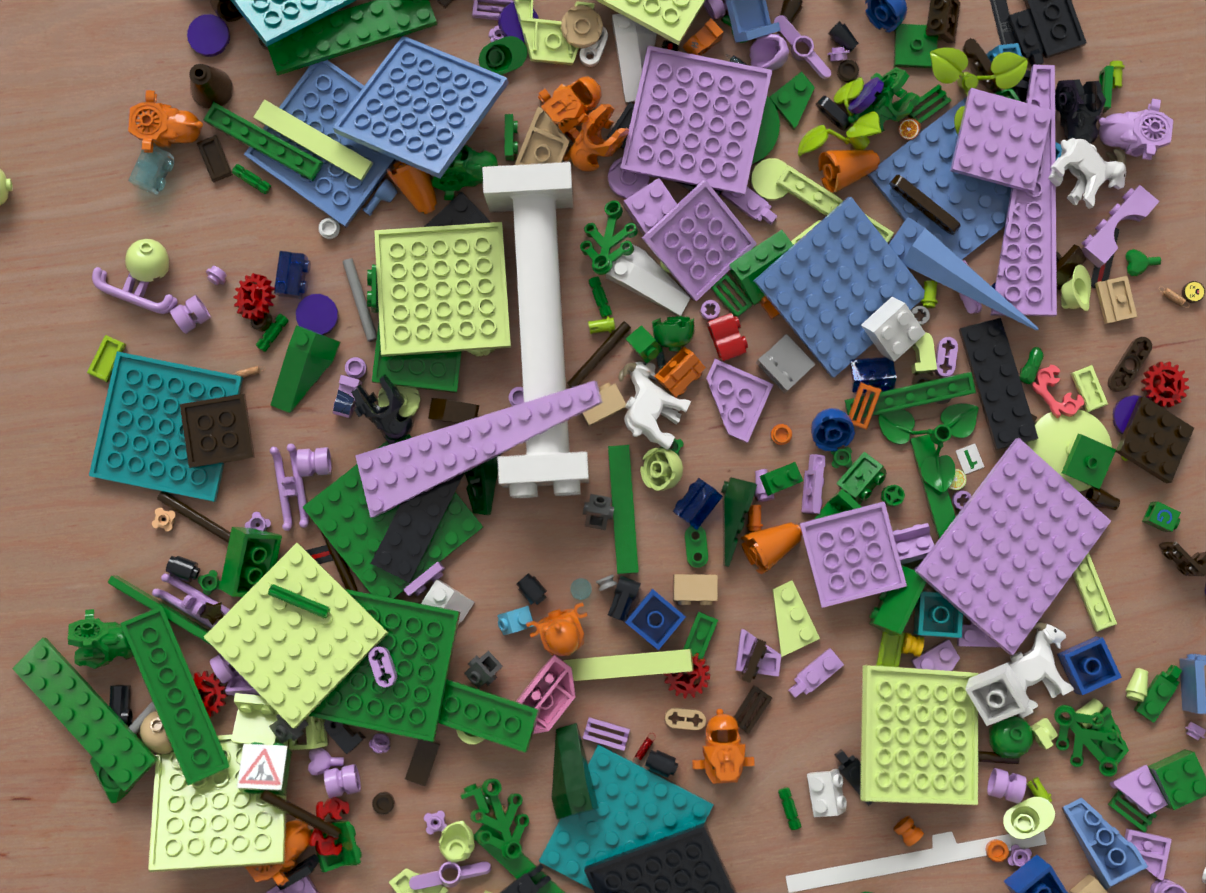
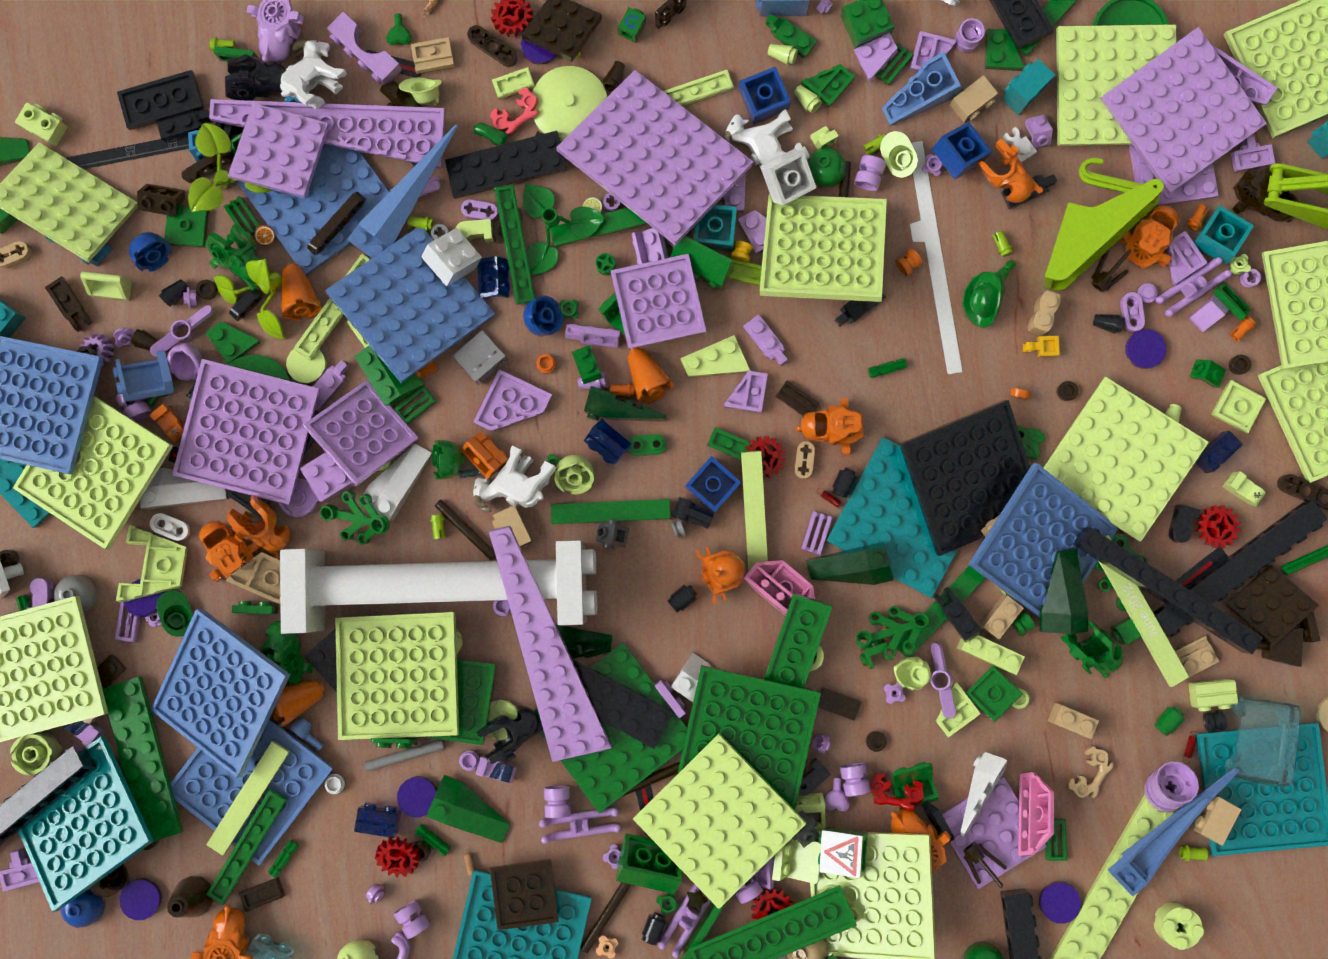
camera: 85 degrees left, 0 degrees up
(299, 601) = (687, 817): green axle -> none
(300, 813) = (884, 818): dark brown piece -> none
(387, 665) = (752, 743): lavender beam -> none
(452, 410) = (513, 669): dark brown slope -> none
(483, 669) = (755, 645): dark grey brick -> none
(514, 620) = (711, 615): medium azure bracket -> none
(581, 26) = (150, 537): tan tile -> none
(581, 589) = (683, 552): clear light blue tile -> none
(600, 297) = (410, 527): green axle -> none
(644, 344) = (457, 487): green brick -> none
(695, 588) = (685, 447): tan brick -> none
(716, 310) = (428, 419): lavender bush -> none
(727, 337) = (453, 410): red brick -> none
(750, 668) = (759, 398): dark brown plate -> none
(826, 793) = (874, 334): white bracket -> none
(862, 477) = (588, 290): green bracket -> none
(866, 97) = (231, 271): dark purple tile -> none
(869, 388) = (512, 291): orange tile -> none
(969, 458) = (574, 193): white sticker -> none
(997, 850) = (927, 184): orange tile -> none
(1085, 737) = (827, 101): green plant -> none
(1088, 461) = (579, 86): green plate -> none

